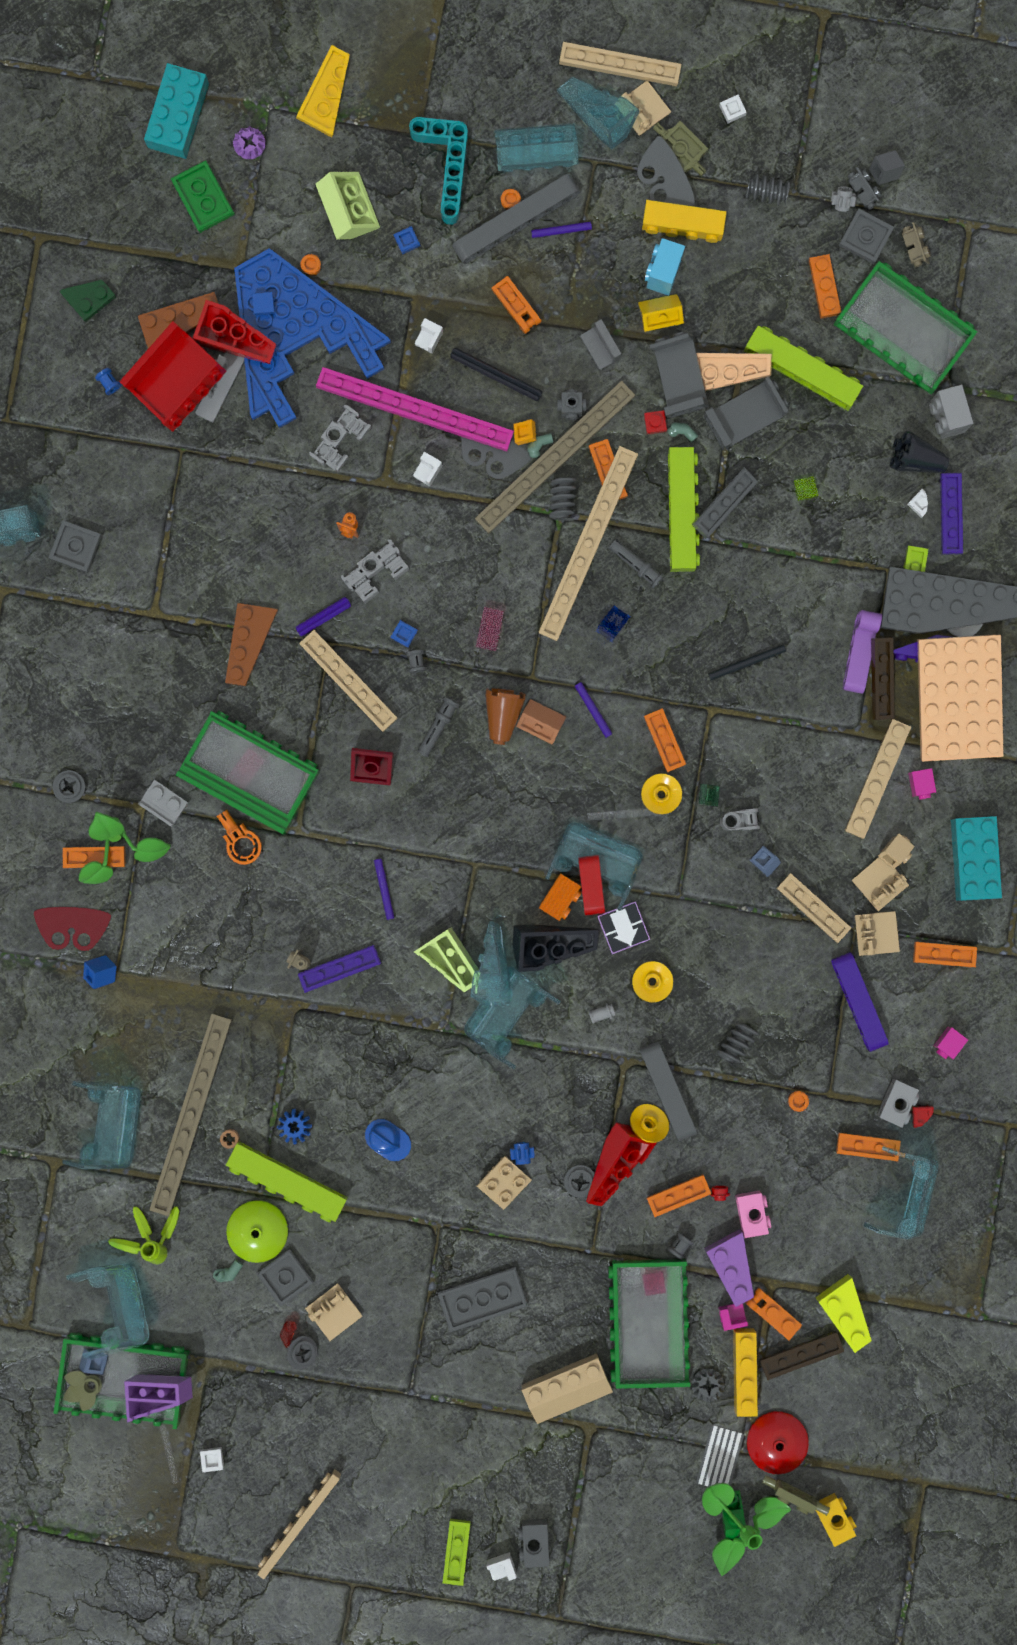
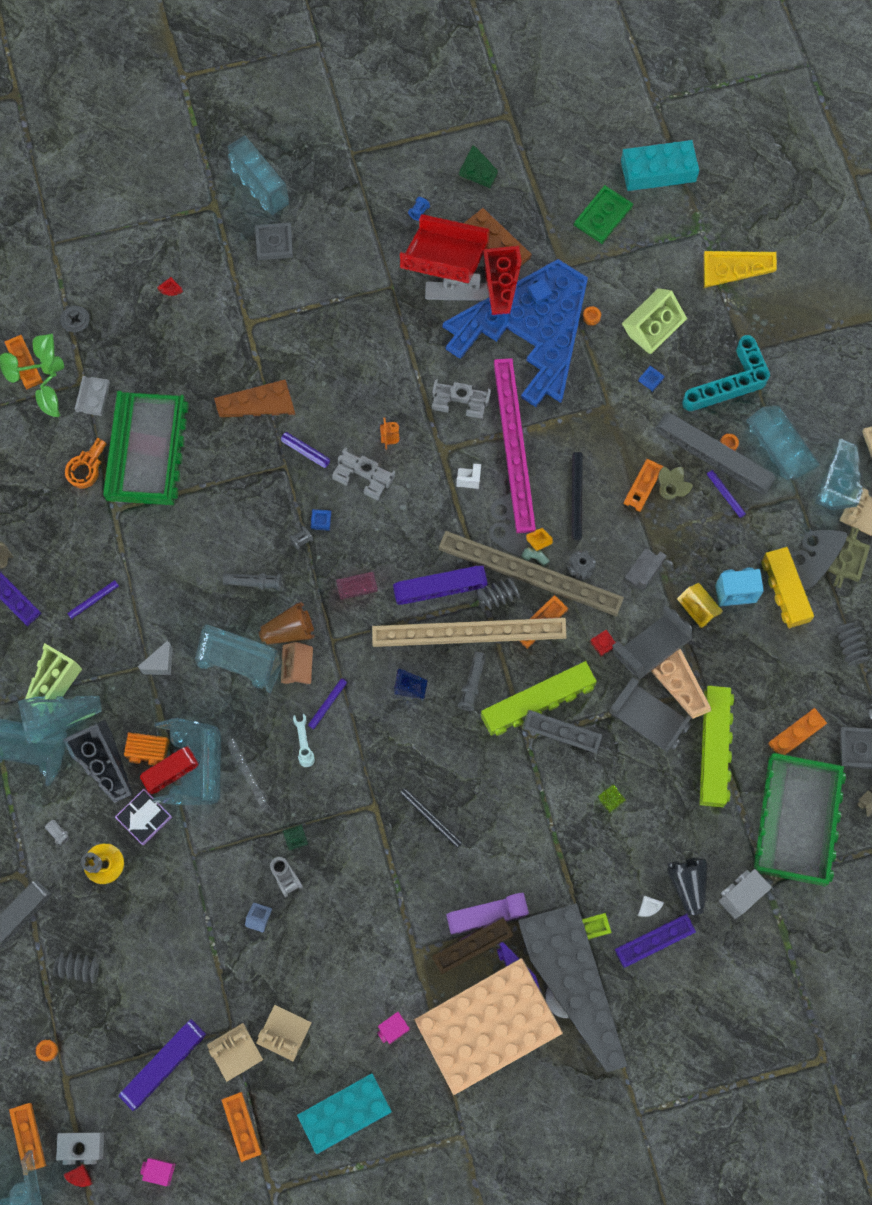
camera: 65 degrees right, 15 degrees down
(77, 675) = (170, 287): none -> red tile
(250, 151) = (657, 229): medium lavender gear -> none
(348, 681) = (259, 492): tan plate -> none
(371, 766) = (194, 542): dark red slope -> none
(429, 335) = (581, 430): white panel -> none
(480, 850) = (159, 662): none -> light grey slope
(516, 774) = (239, 656): none -> clear light blue windscreen
(526, 549) = (440, 585): none -> dark purple beam
(527, 273) = (674, 481): none -> olive plate
(622, 748) = (305, 756): none -> light aqua brick
(655, 994) = (86, 865): none -> dark grey bush
(664, 740) = (327, 776): orange plate -> none
(669, 786) = (272, 786): yellow dish -> none
(682, 428) = (610, 669): sand green arm -> none
(813, 908) = (233, 980): tan plate -> none
(877, 779) = (379, 985): tan plate -> none
(897, 851) = (319, 1033): tan brick -> none

